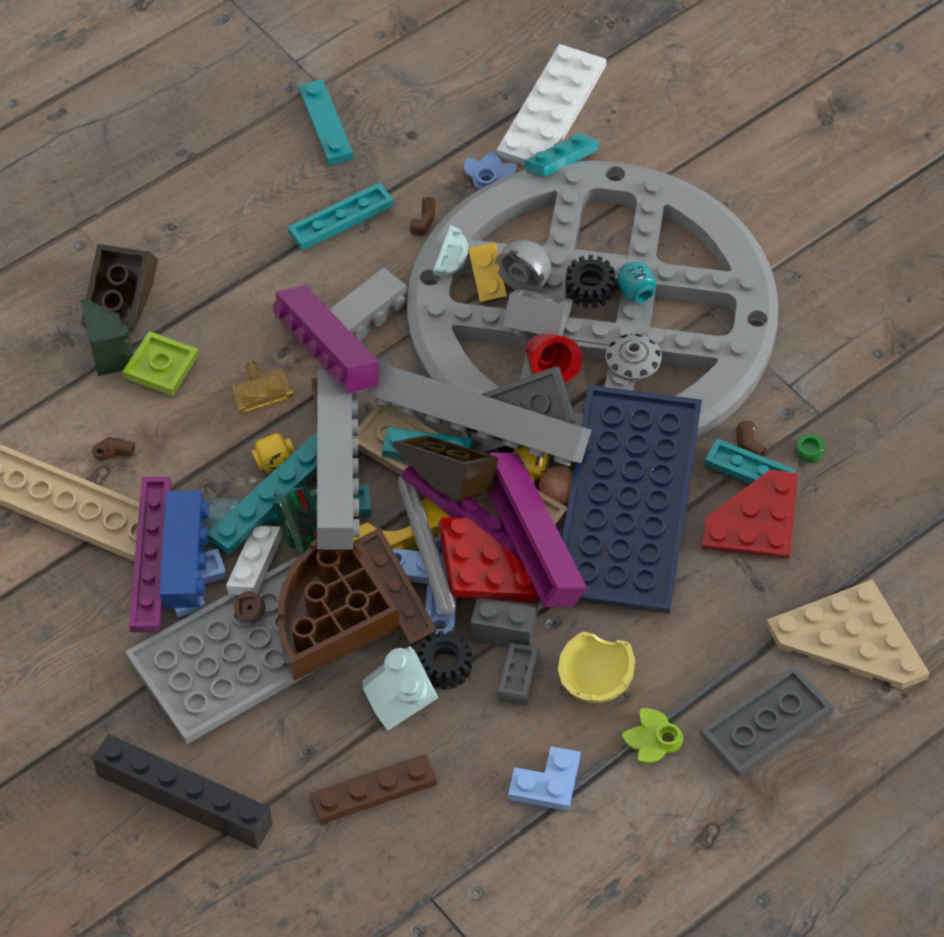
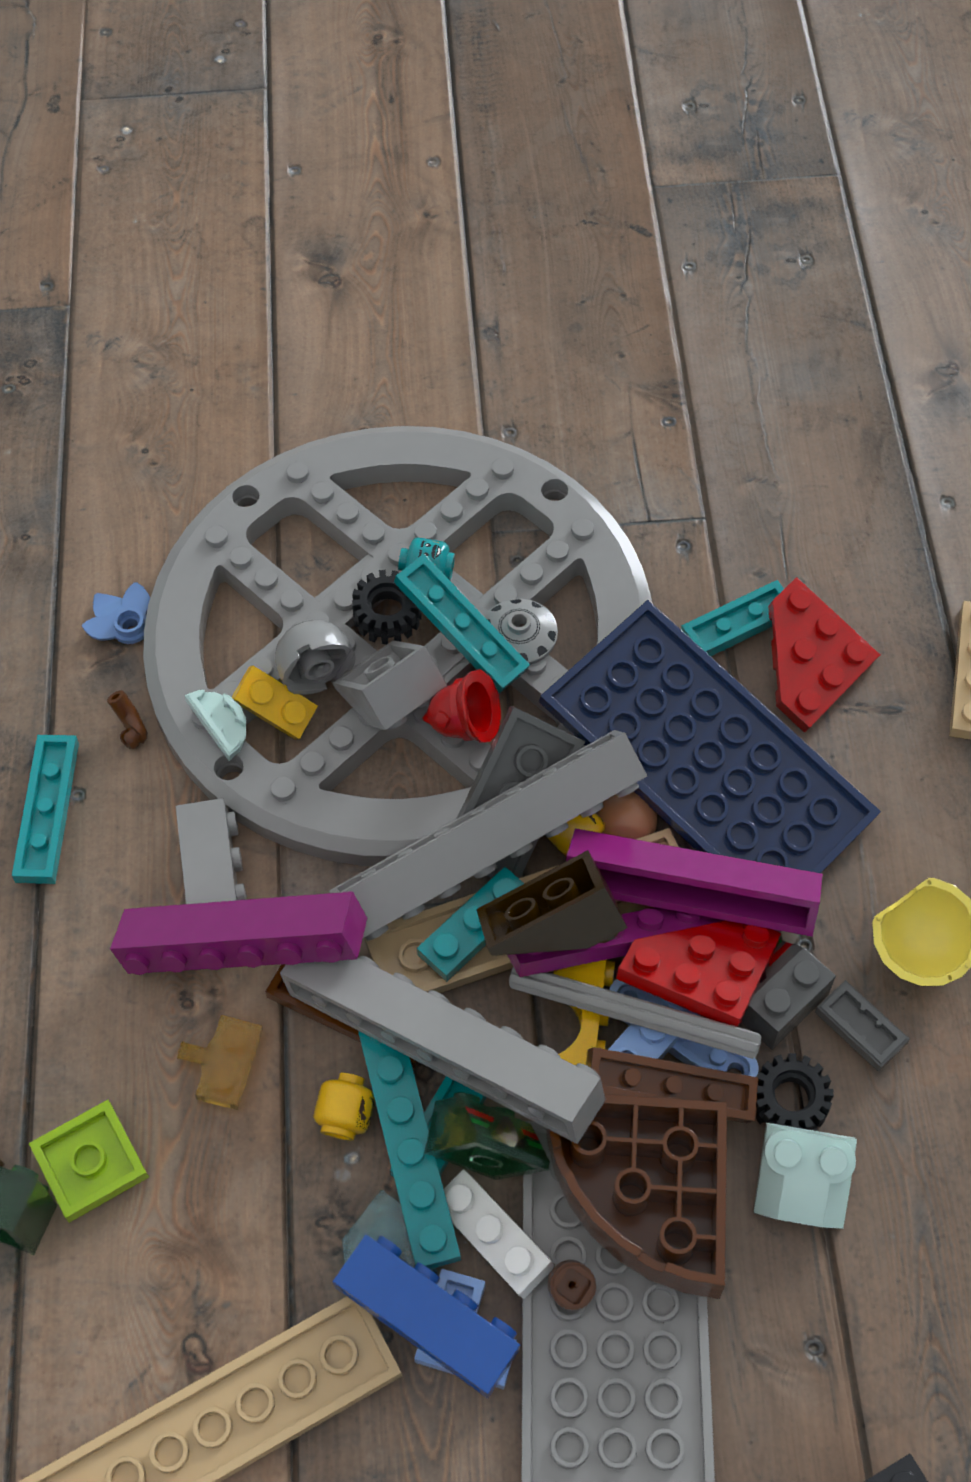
camera: 55 degrees left, 5 degrees up
(111, 447) = (168, 1308): reddish brown arm -> none
(145, 598) = (400, 1365): magenta plate -> none
(373, 789) = (925, 1302): reddish brown plate -> none
(552, 104) = (88, 503): white plate -> none
(561, 154) = (171, 530): teal plate -> none
(604, 319) = (461, 622): none -> teal plate
(746, 440) = (695, 600): reddish brown arm -> none
(810, 448) = (748, 552): green tile -> none

